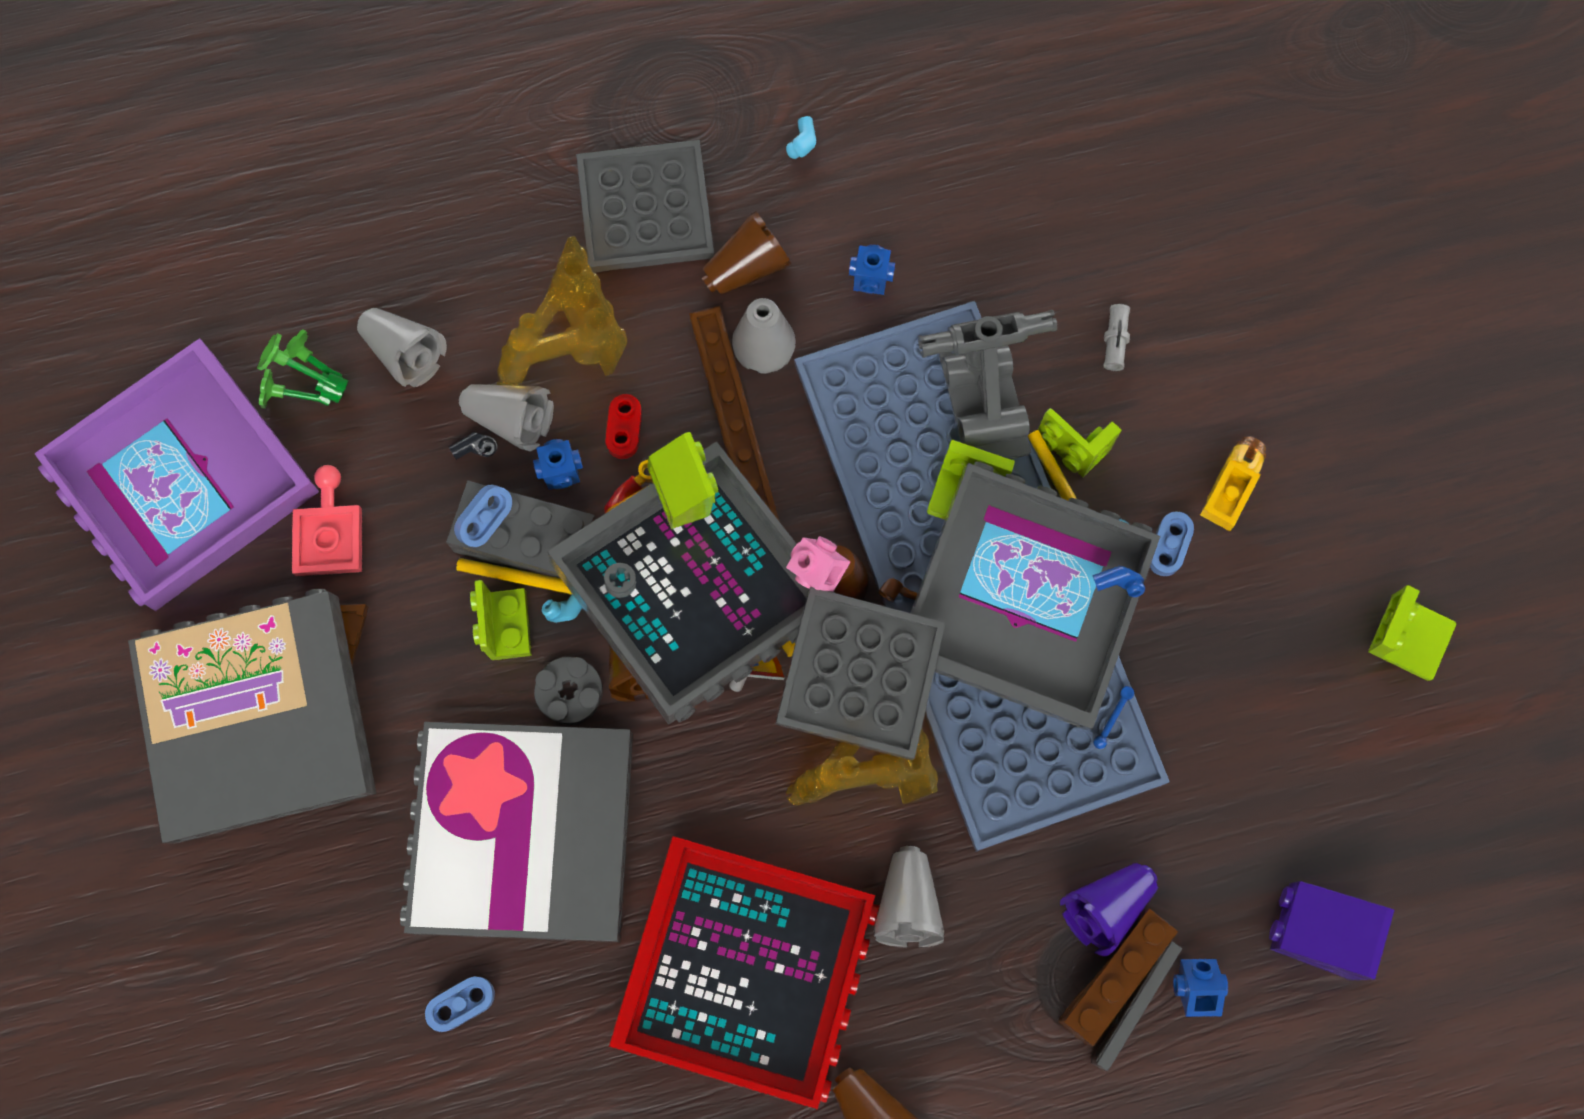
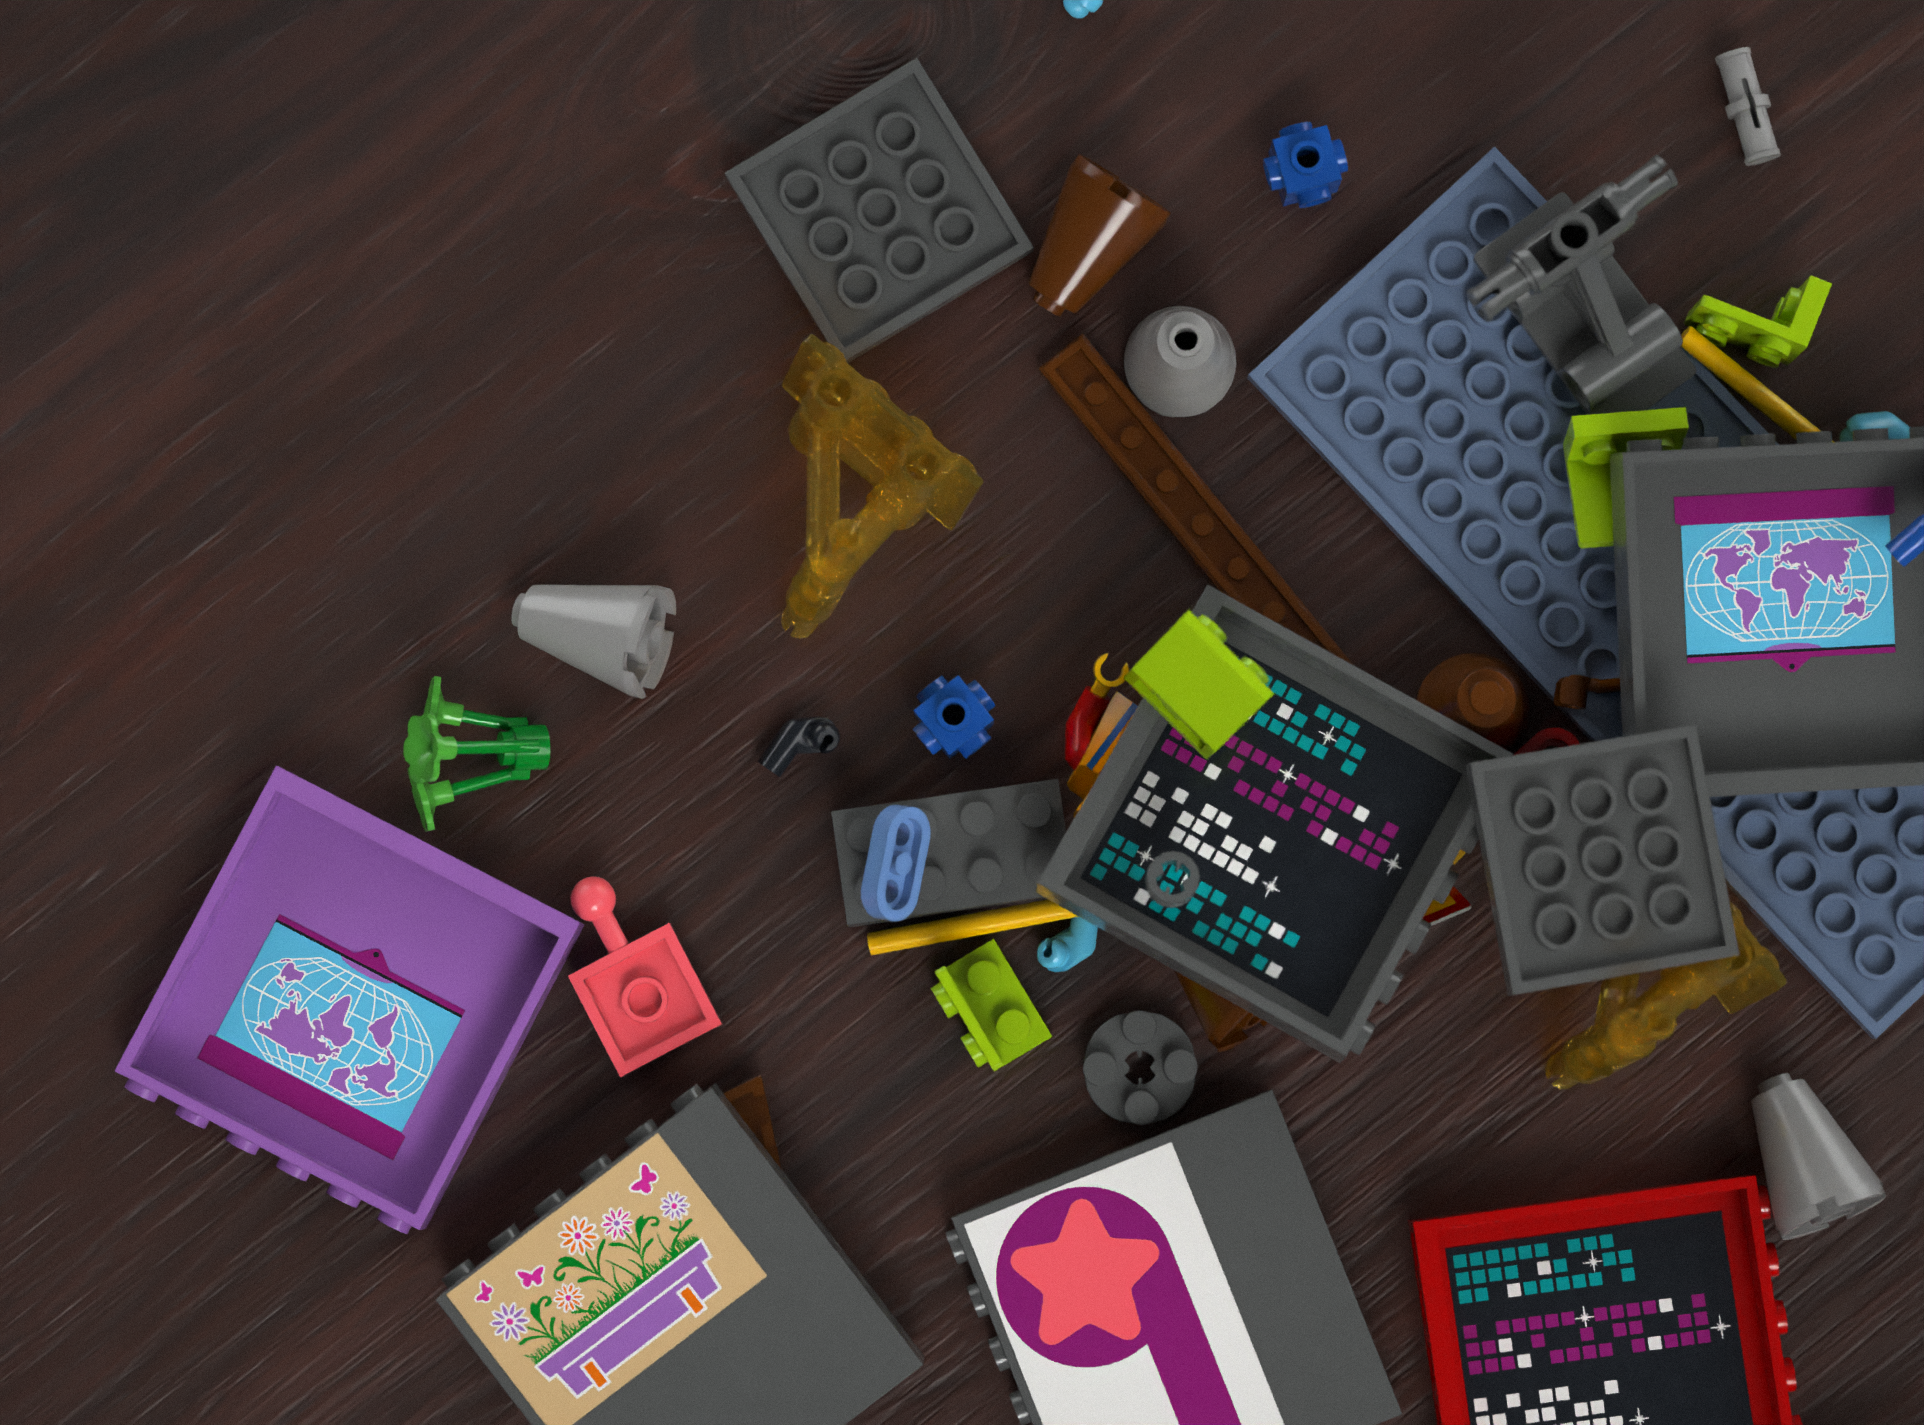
camera: 20 degrees left, 10 degrees up
(510, 411) = (831, 666): light grey cone -> none
(623, 424) = (1021, 603): red plate -> none
(817, 564) = (1465, 723): bright pink brick -> none

